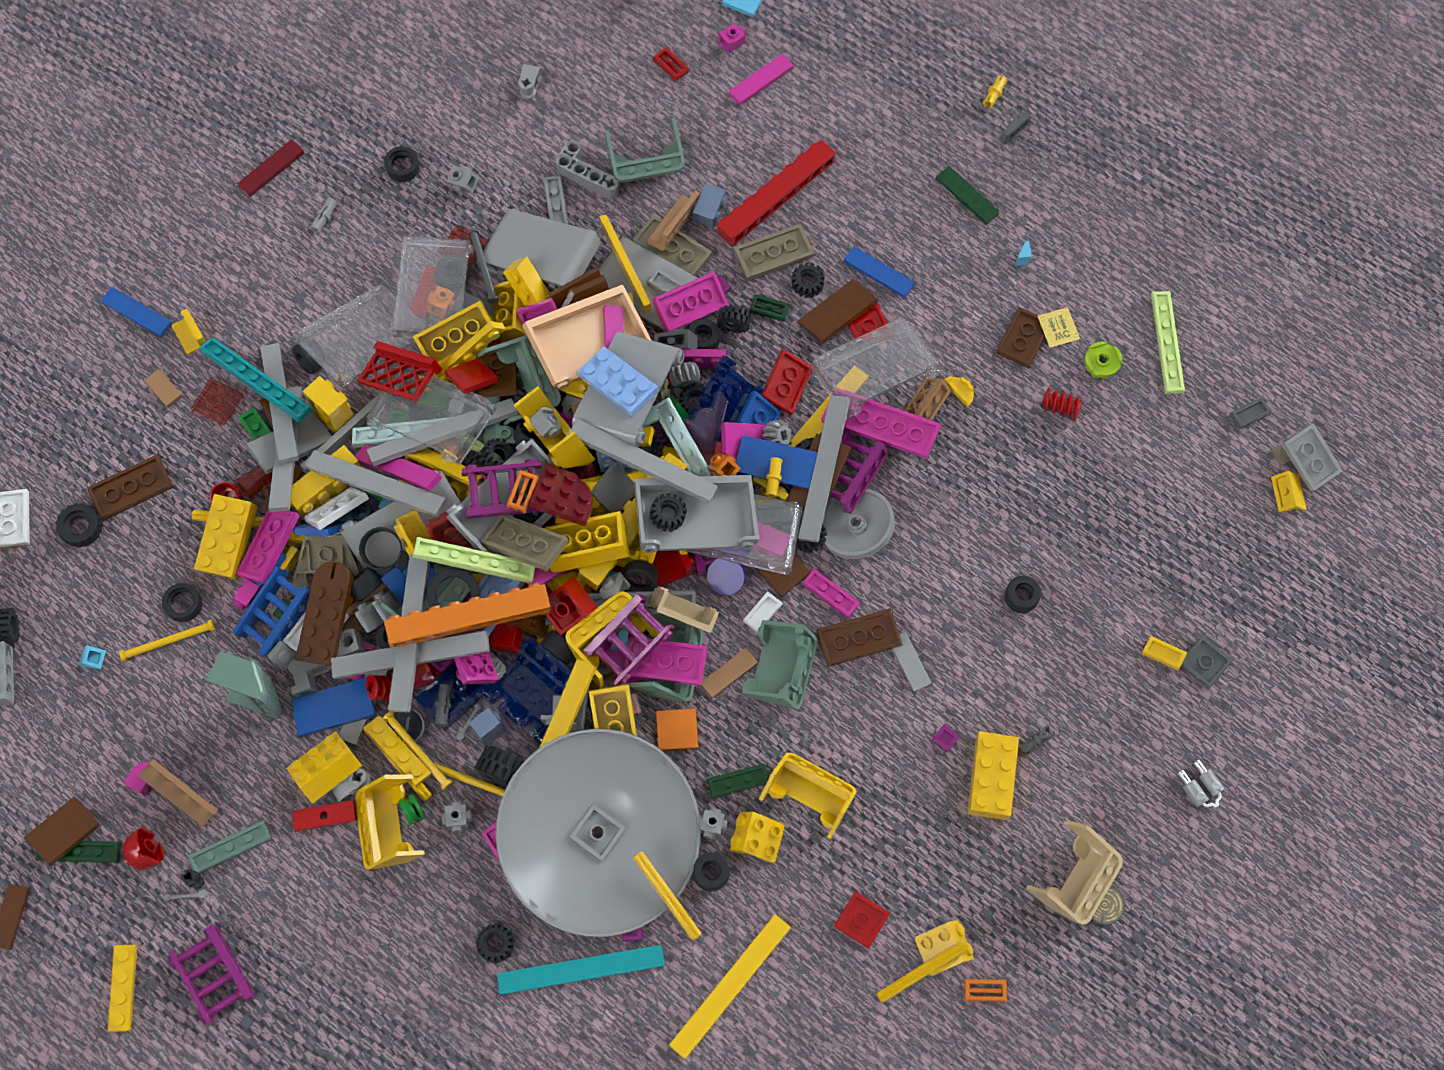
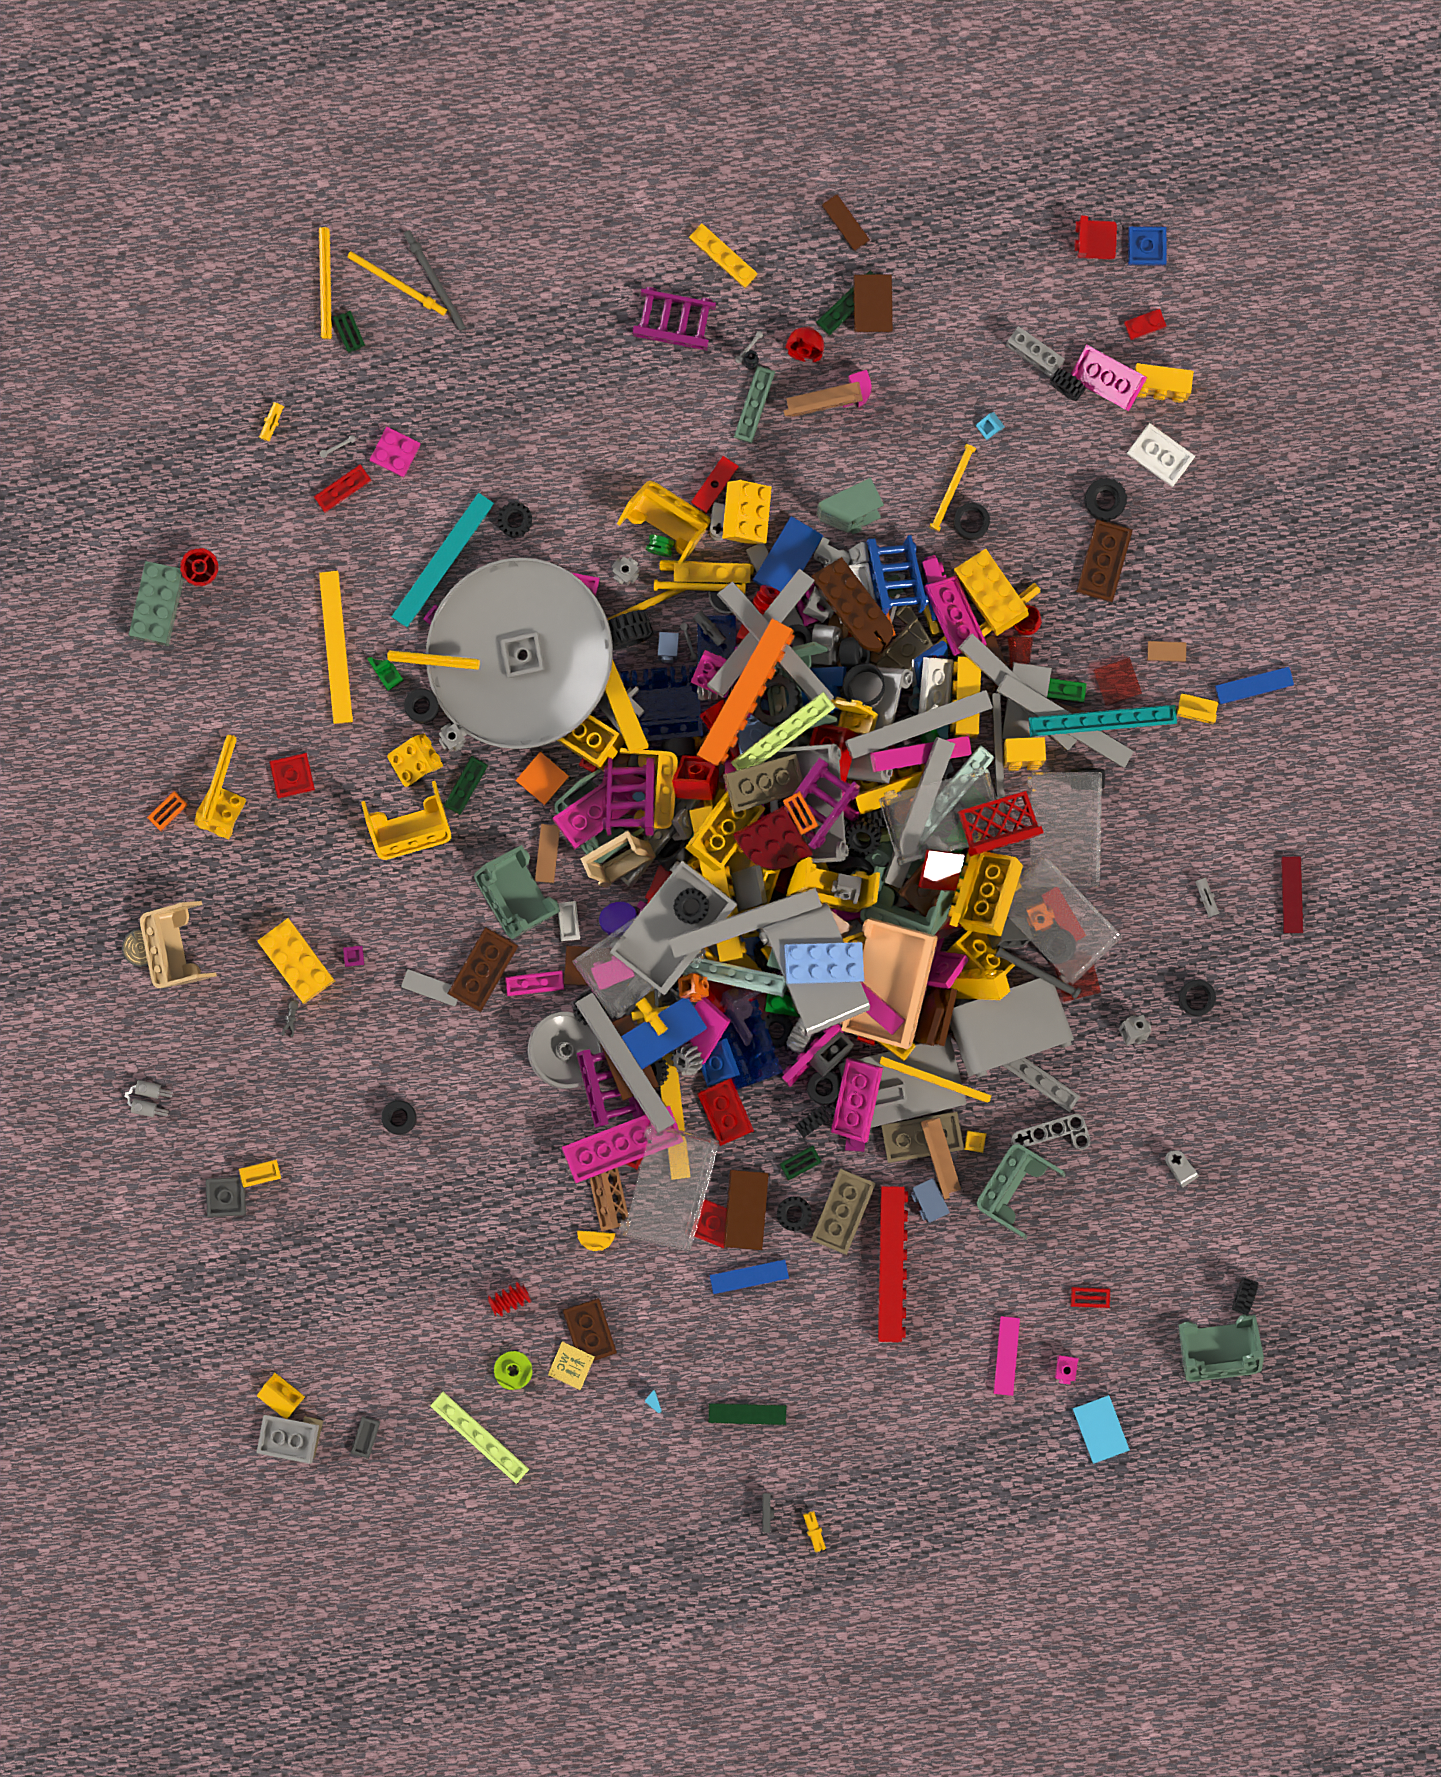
camera: 135 degrees right, 15 degrees up
(640, 215) = (975, 1141): none -> yellow tile
(711, 926) = (386, 672): none -> green slope

